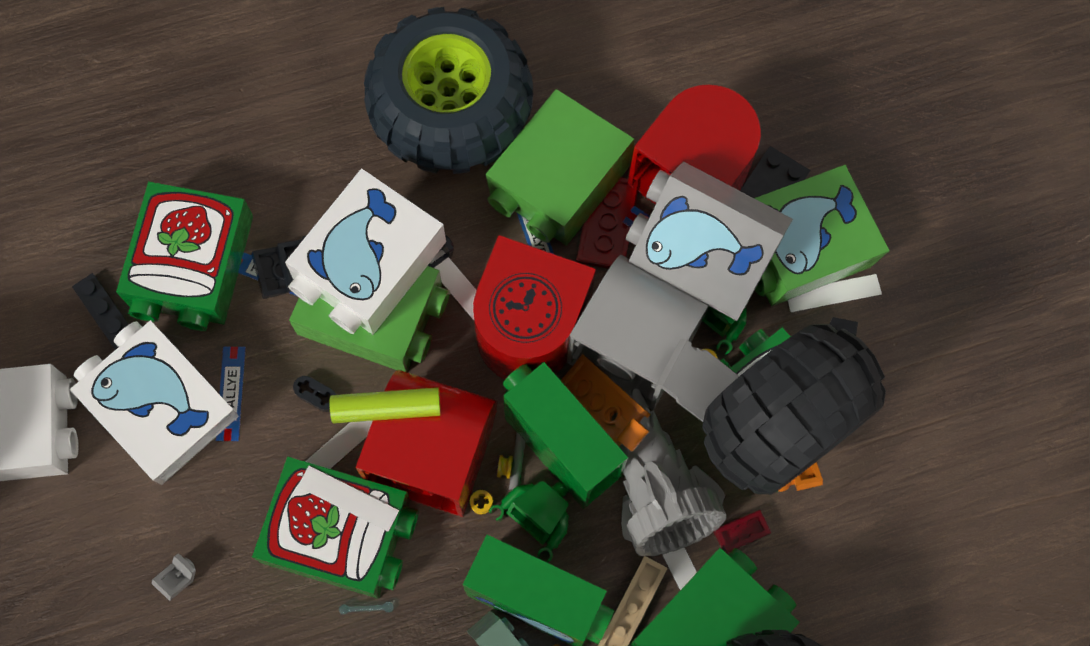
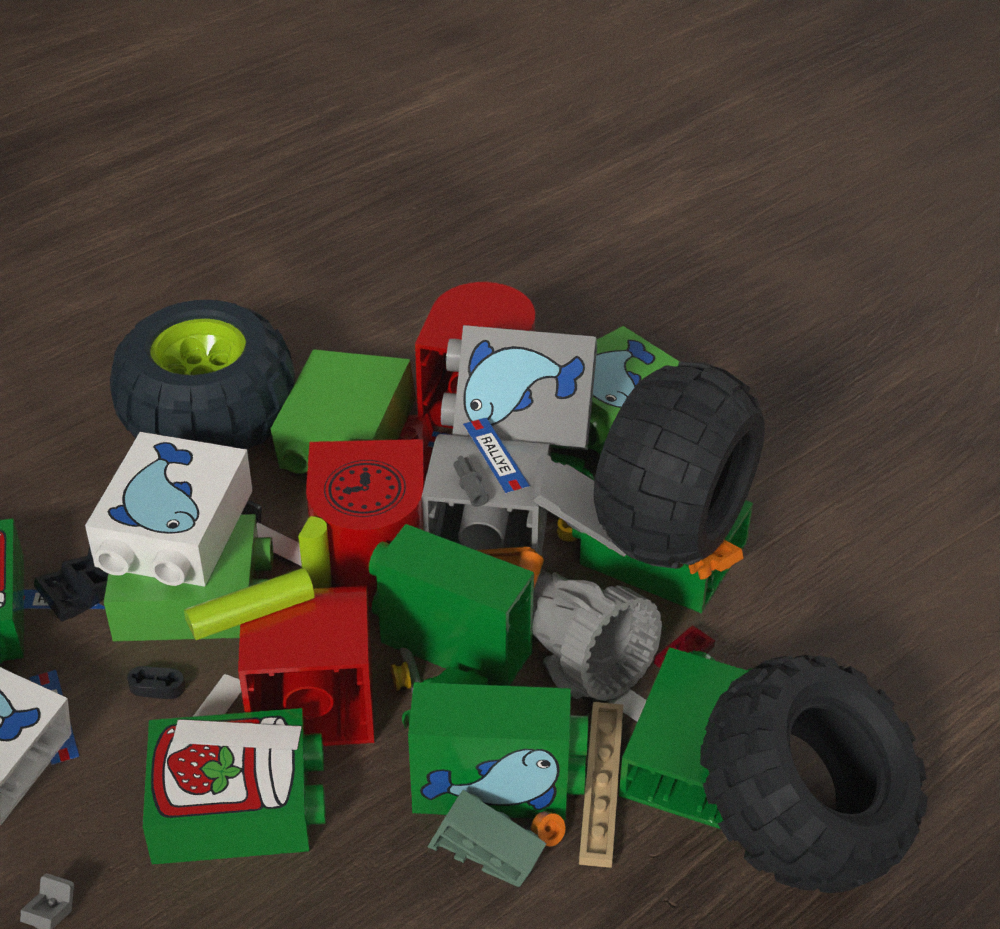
camera: 20 degrees left, 30 degrees down
(387, 607) = (323, 854): clear light blue hinge -> none
(468, 350) = (315, 552): none -> lime brick
(475, 496) = (386, 710): yellow bush -> none
(614, 339) = (470, 481): none -> dark grey axle
(650, 312) = (496, 455): none -> sticker

